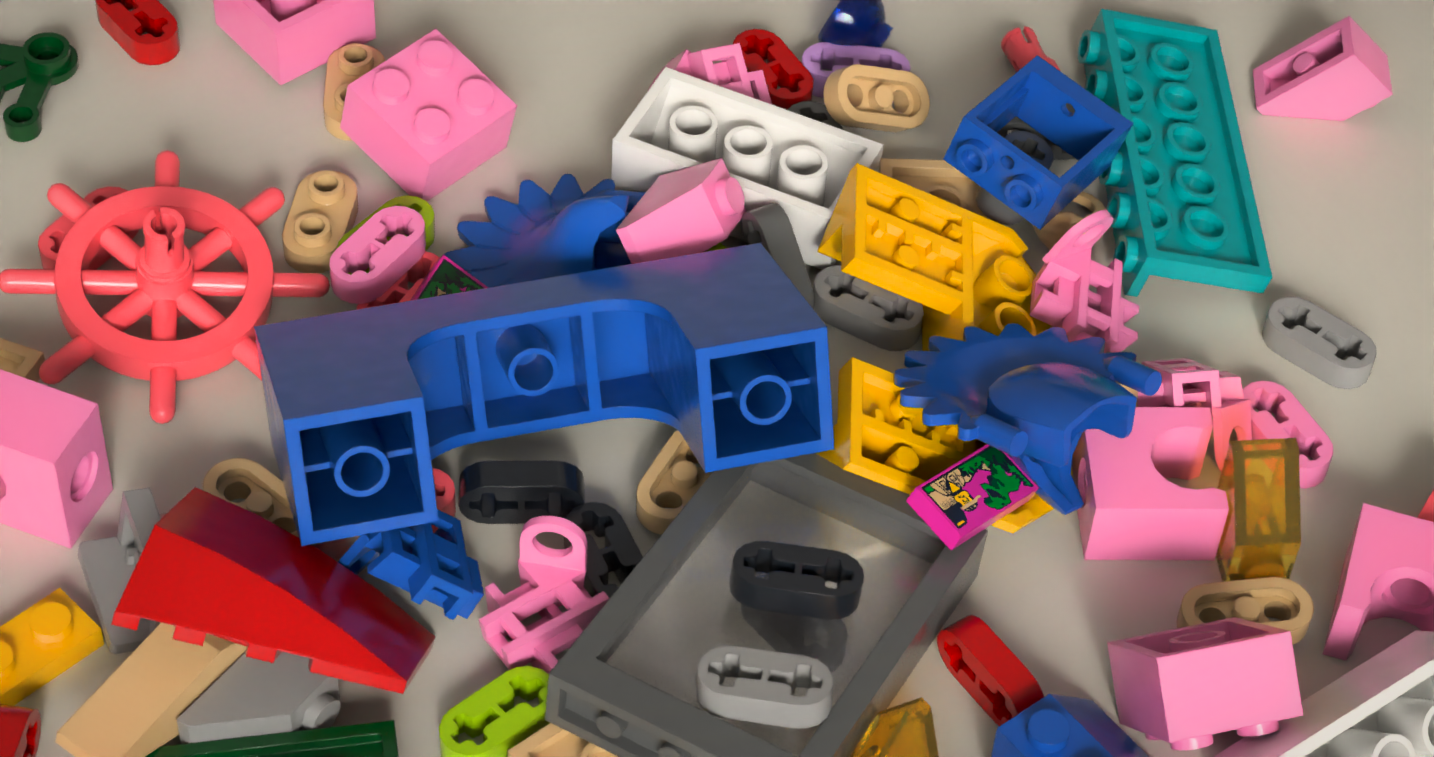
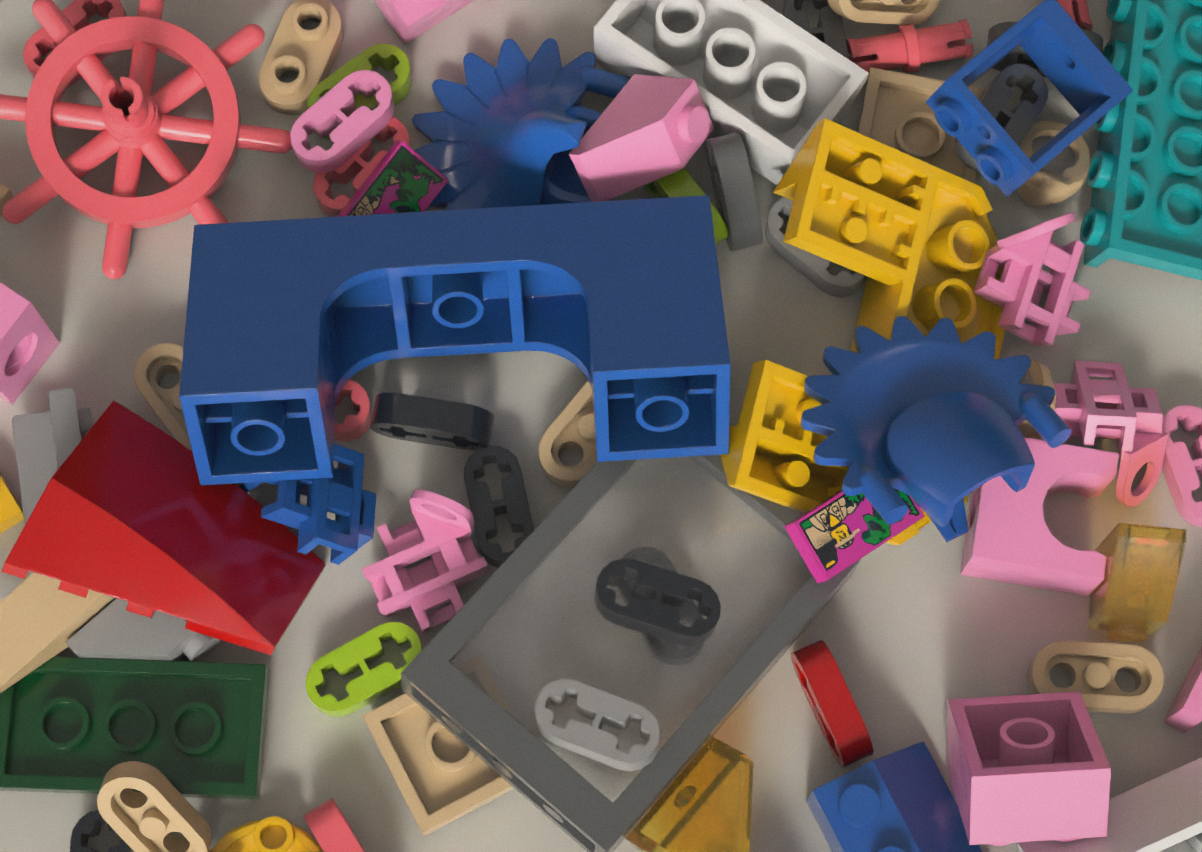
camera: 15 degrees right, 25 degrees up
(919, 142) = (912, 47): none -> coral pin

